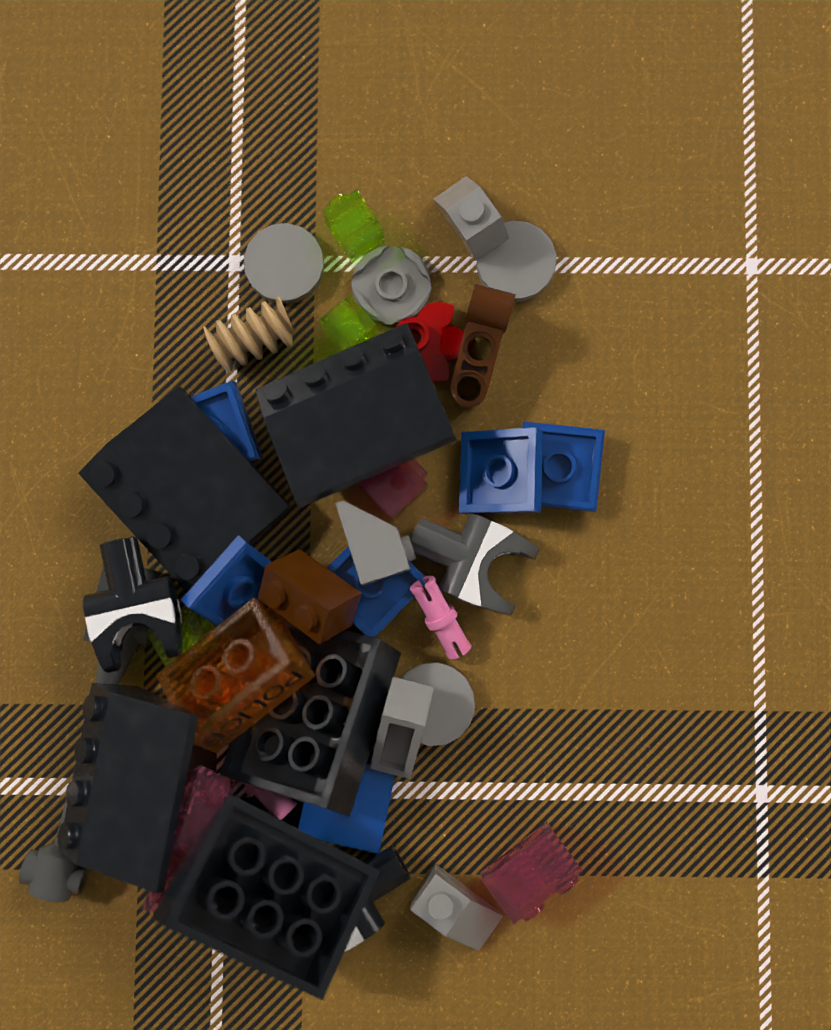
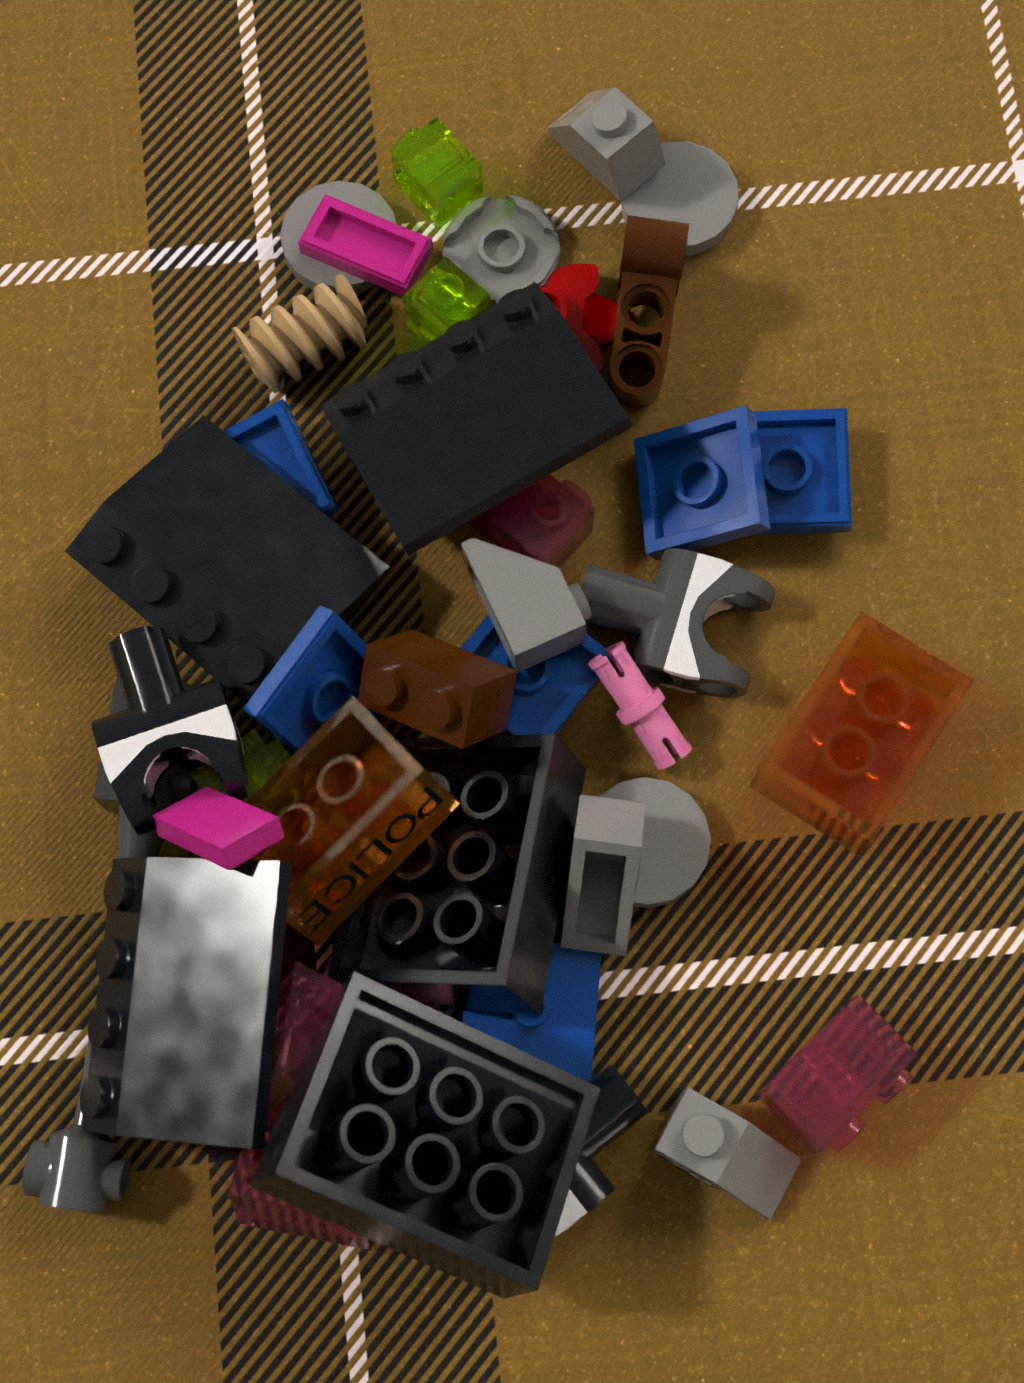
camera: 10 degrees left, 10 degrees down
(156, 680) = (218, 827): none -> dark pink tile
(299, 274) = (365, 245): none -> dark pink tile
(580, 655) = (861, 733): none -> clear orange brick

